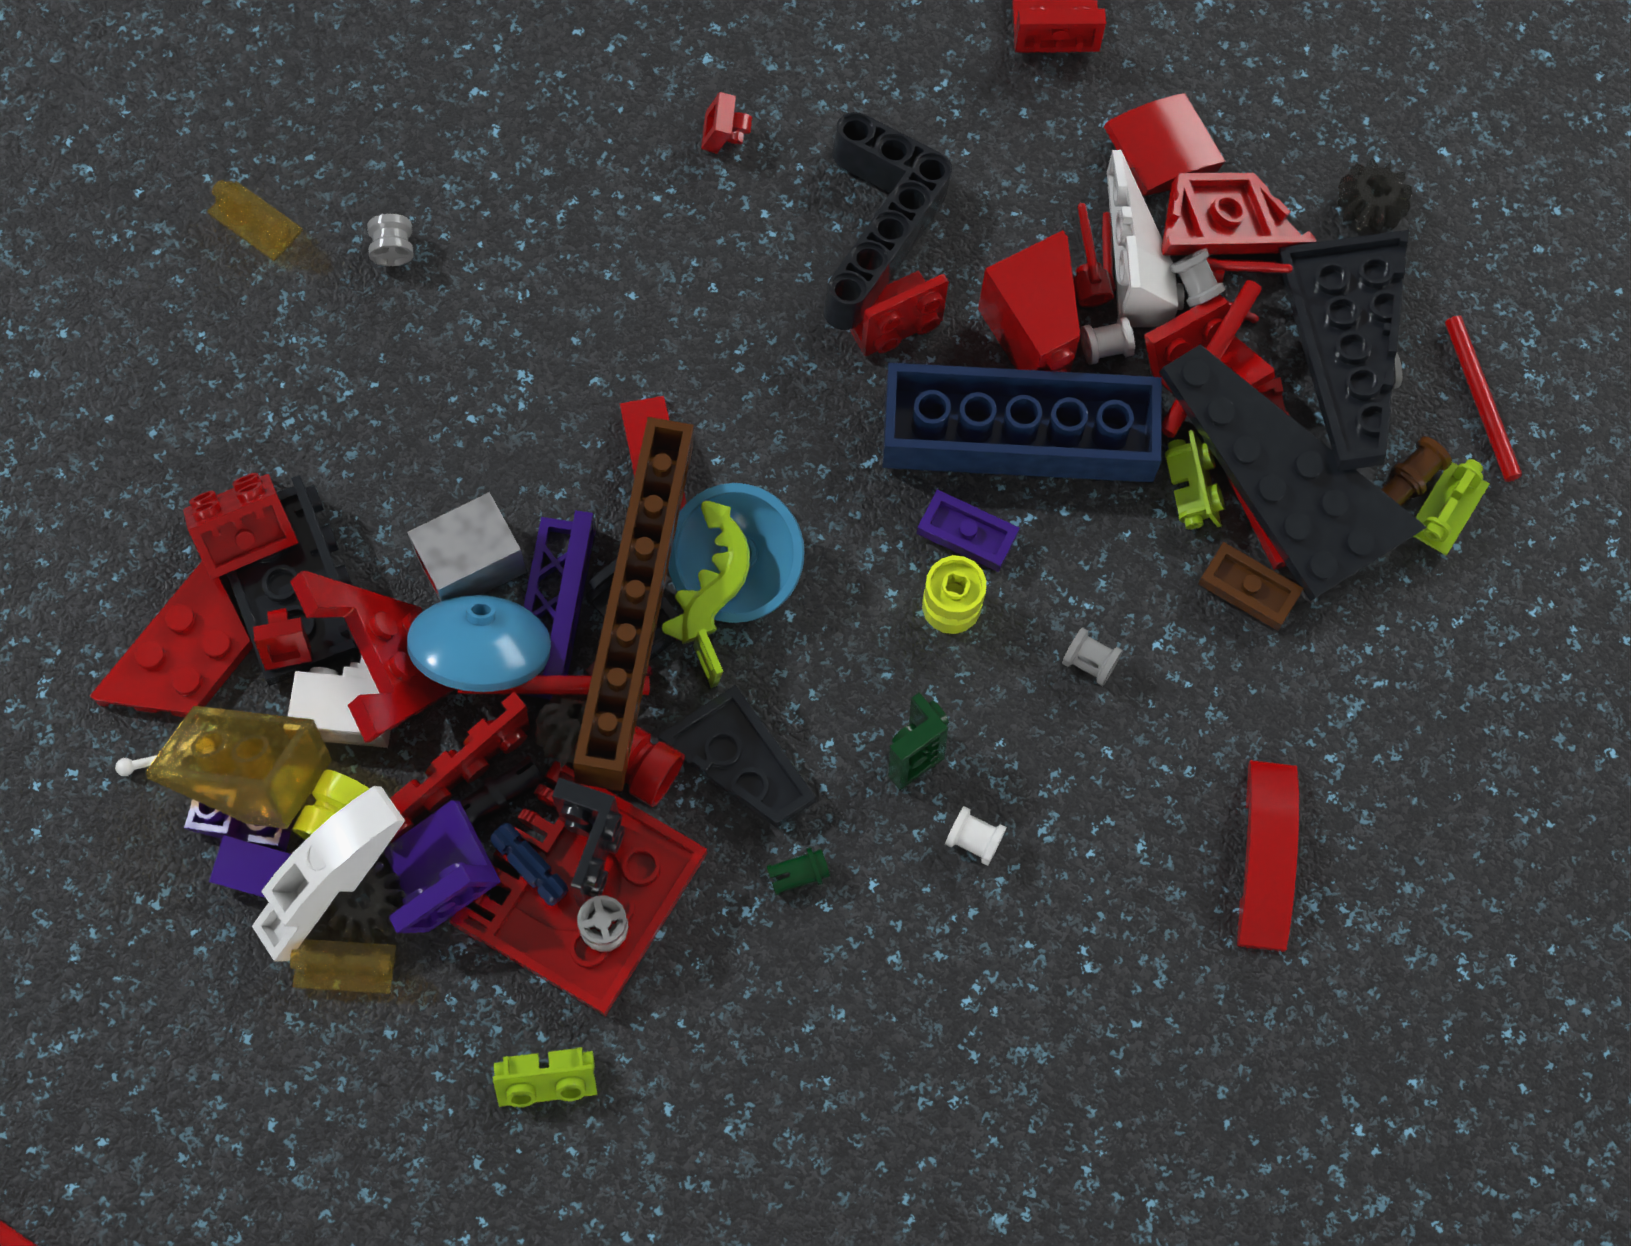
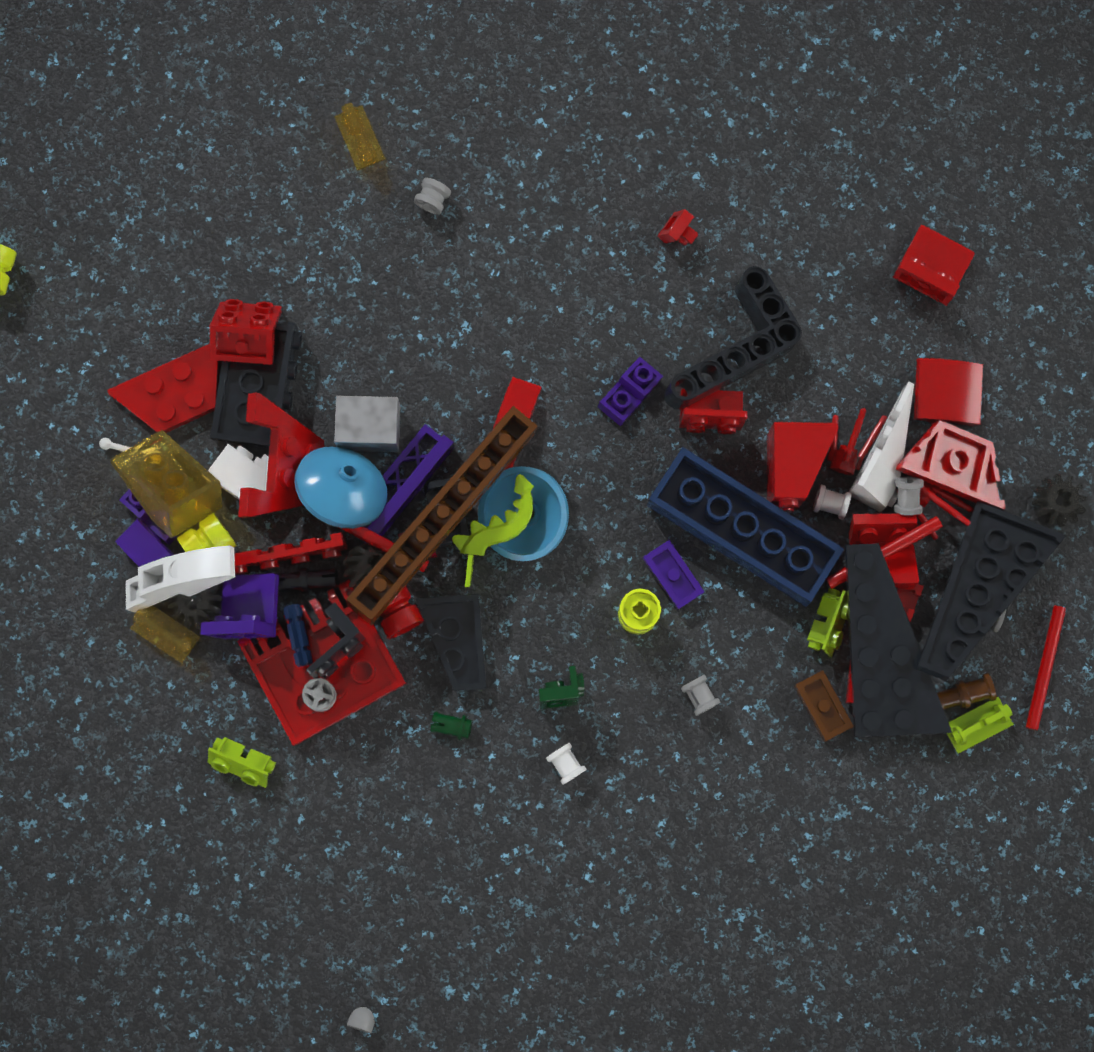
camera: 30 degrees right, 10 degrees up
(282, 641) = (229, 421): red tile -> none
(778, 344) = (630, 391): none -> dark purple slope
(1270, 856) = (733, 873): red slope -> none

